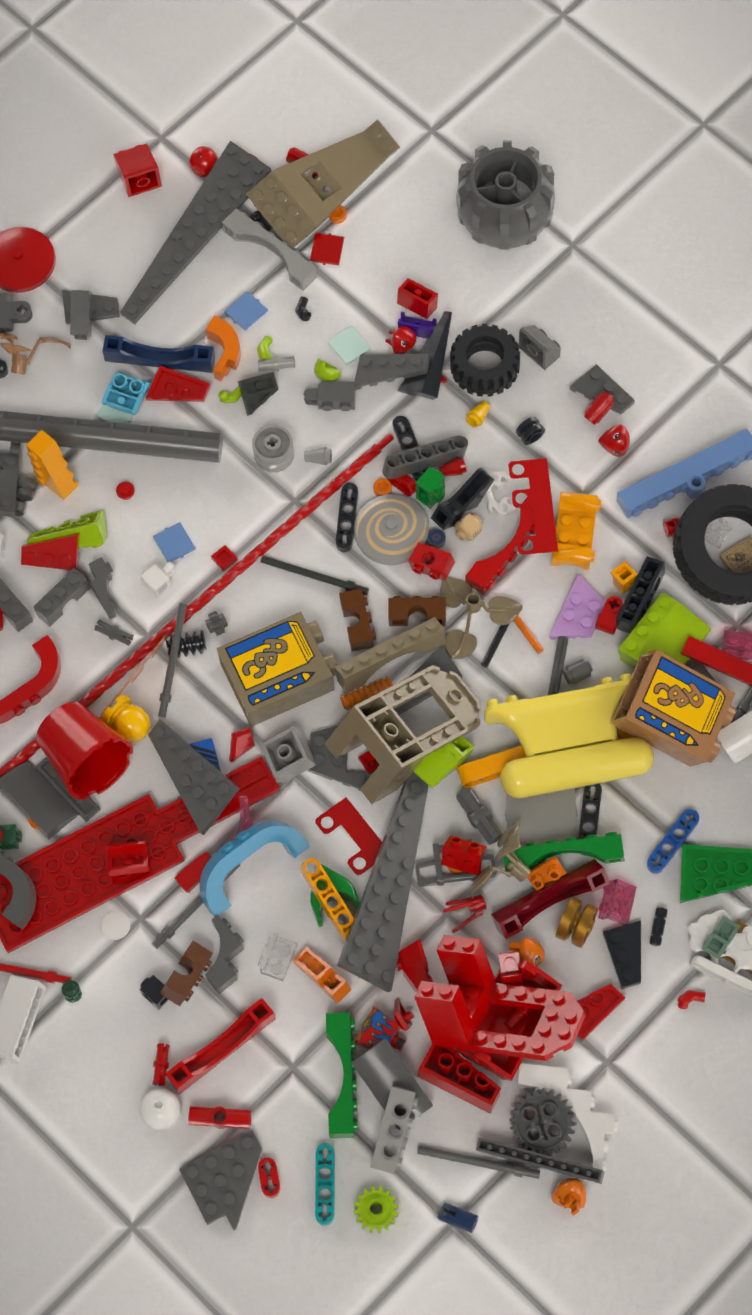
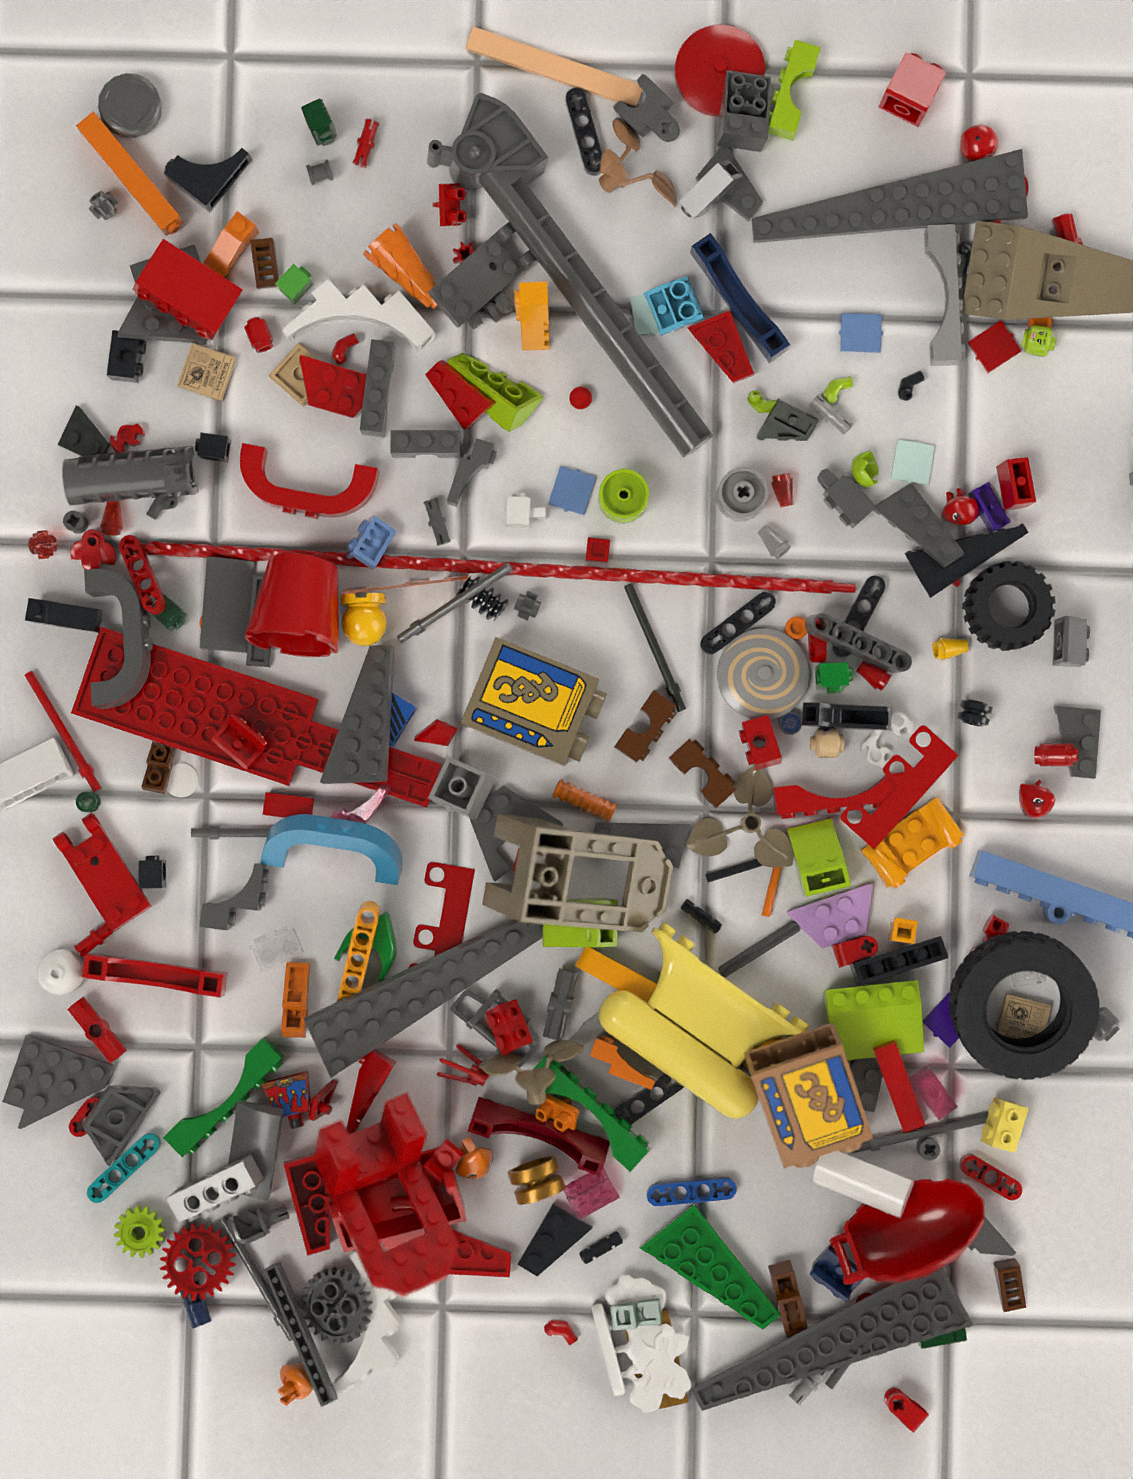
camera: 40 degrees right, 20 degrees up
(57, 264) = (744, 111): none -> dark grey slope
(81, 245) = (801, 64): none -> lime arch
(86, 678) = (371, 541): none -> medium blue bracket
(94, 930) = (159, 768): none -> reddish brown slope
(134, 1022) = (108, 882): none -> red hinge
(194, 961) = (208, 885): reddish brown arch -> none
(207, 513) = (620, 509): none -> lime wheel
(225, 335) = (816, 337): orange arch -> none
(288, 1156) = (117, 1117): none -> dark grey wing
(293, 425) = (783, 489): none -> clear red cone
(347, 222) = (1038, 340): none -> lime head
(360, 668) = (599, 778): dark tan arch -> none
(434, 1204) = (184, 1280): none -> red gear
(443, 1125) = (262, 1221): none -> dark grey piece
(504, 688) = (701, 916): none -> black axle
(534, 589) = (818, 857): none -> lime slope
(535, 811) = (606, 1051): none -> orange slope
(577, 671) = (774, 968): dark grey brick -> none
(704, 607) = (940, 1022): none -> dark purple piece

